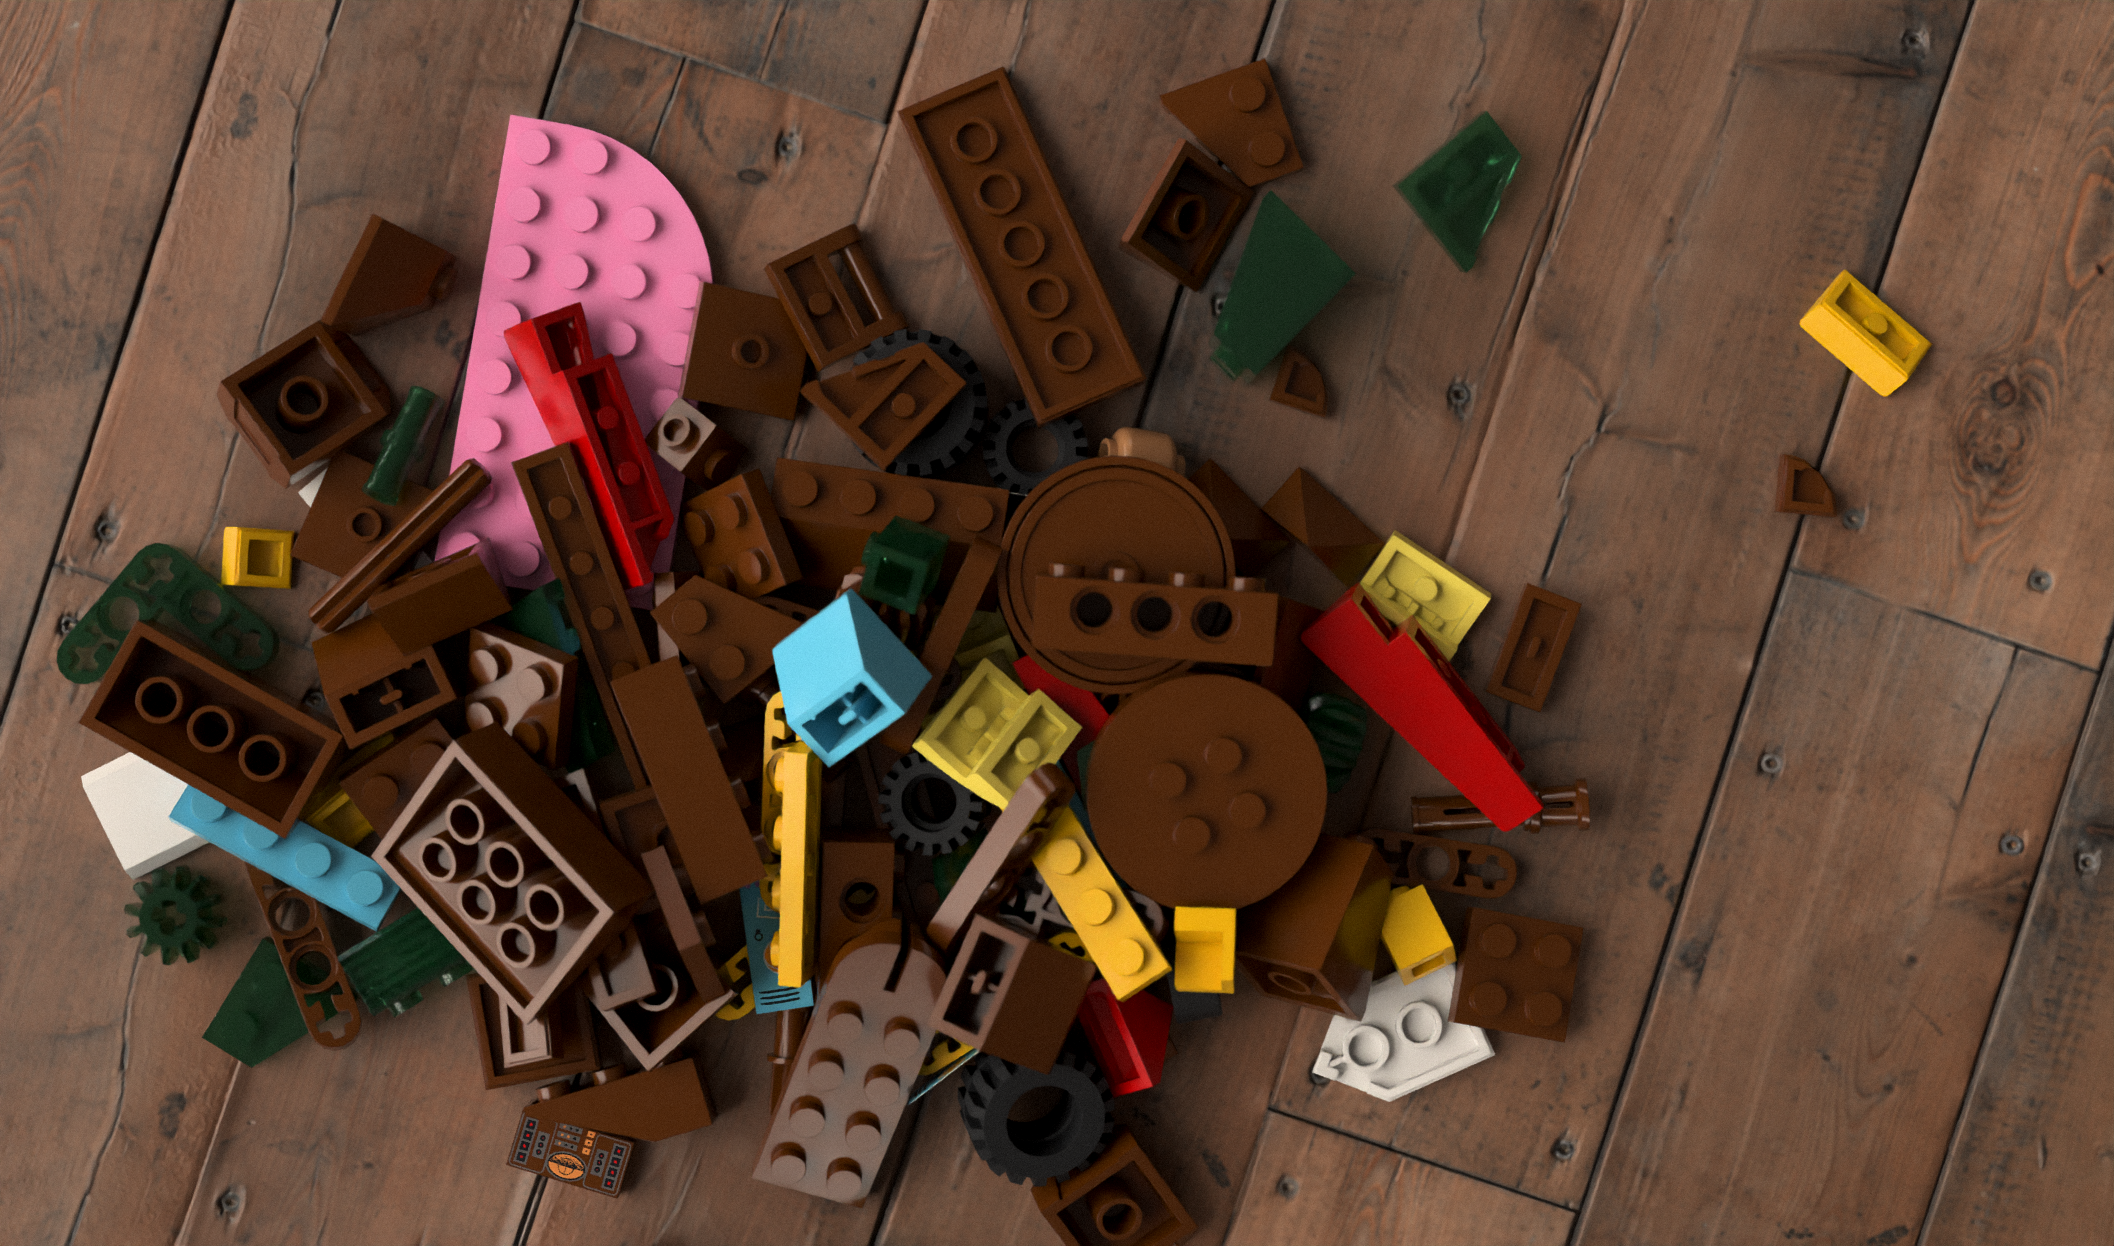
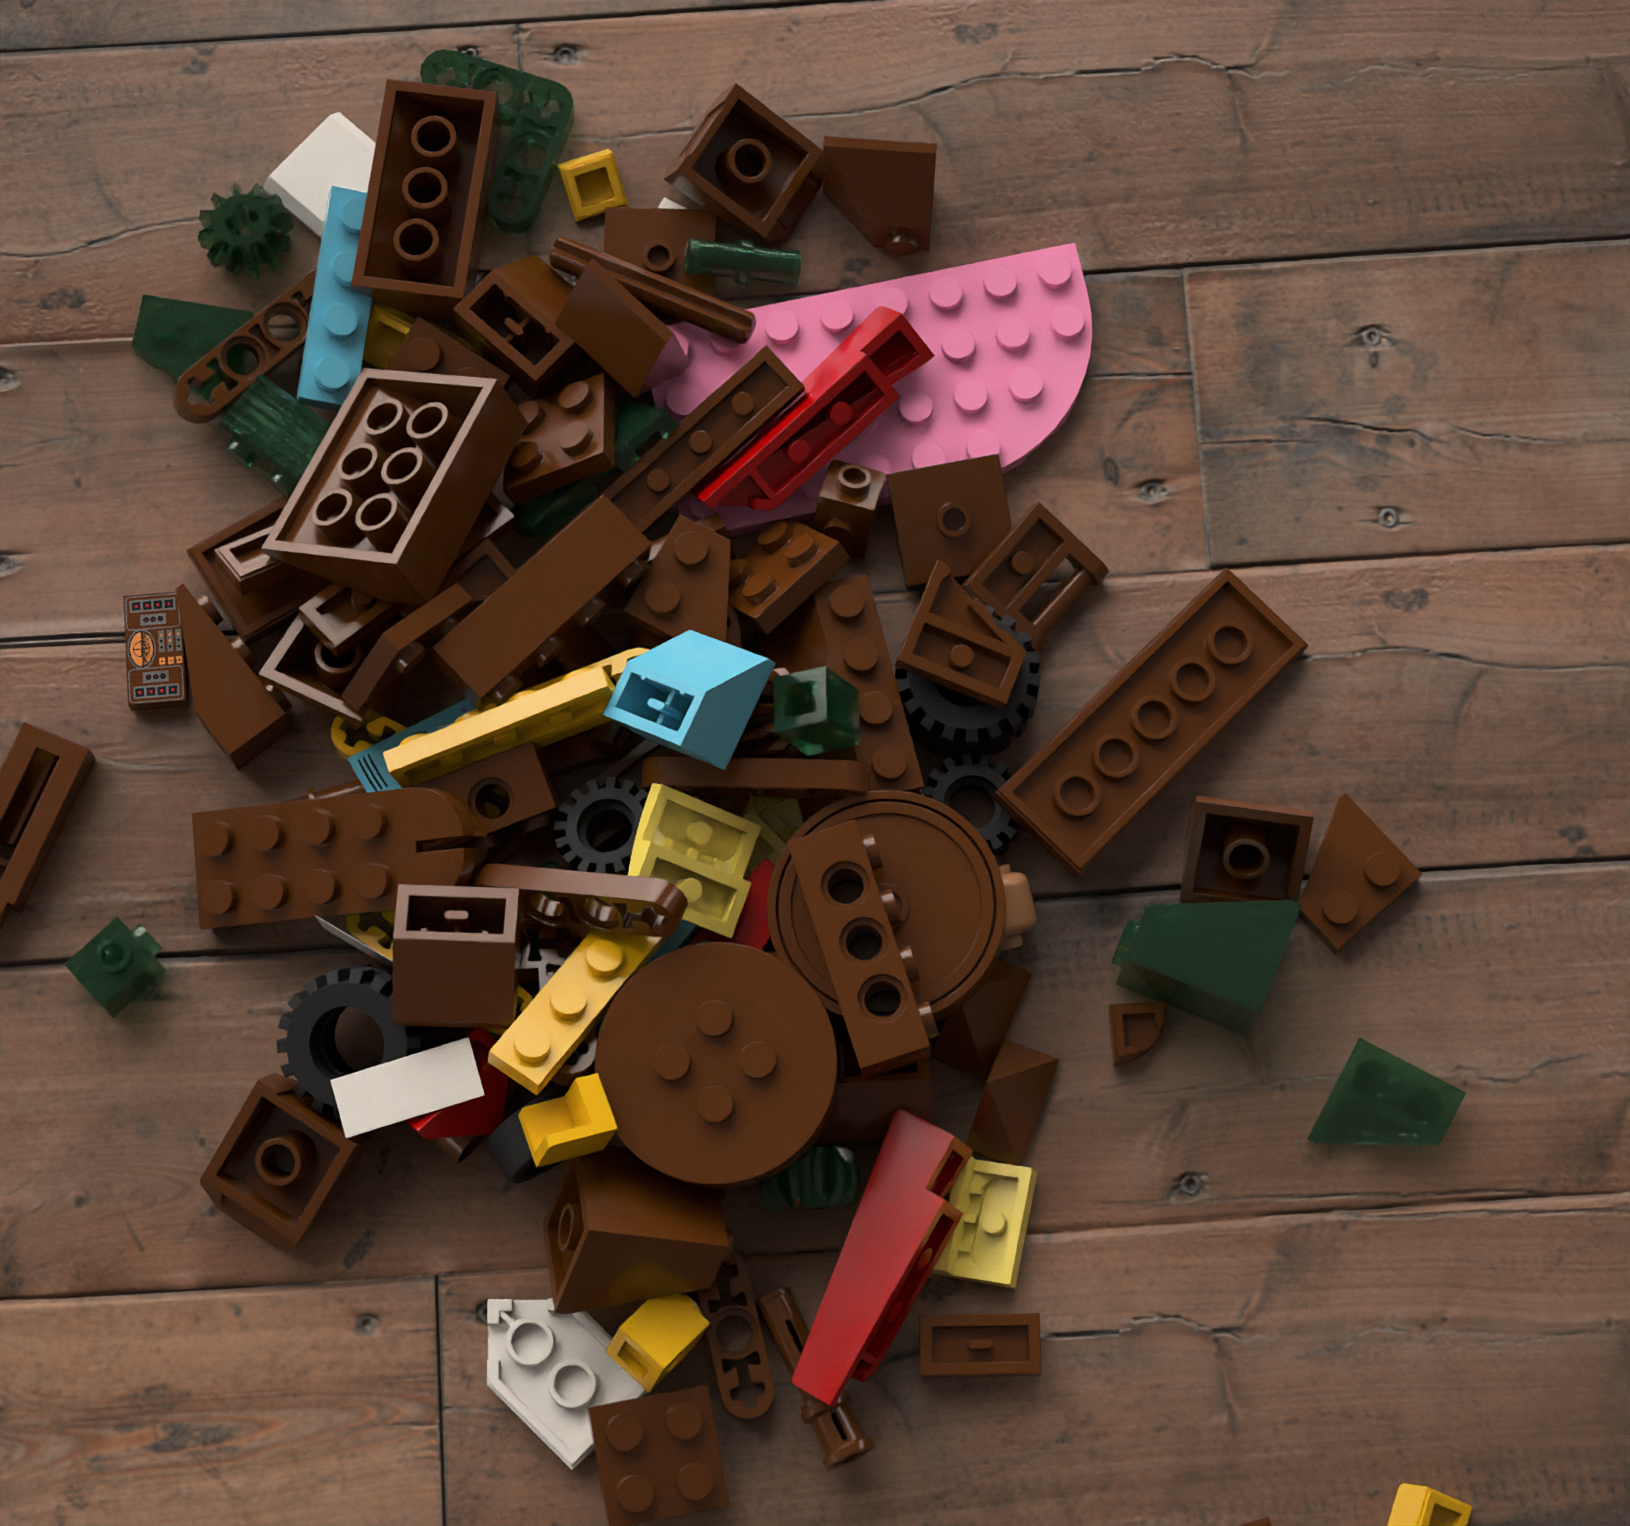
camera: 65 degrees right, 15 degrees down
(1107, 1080) = (407, 1087): none -> white sticker

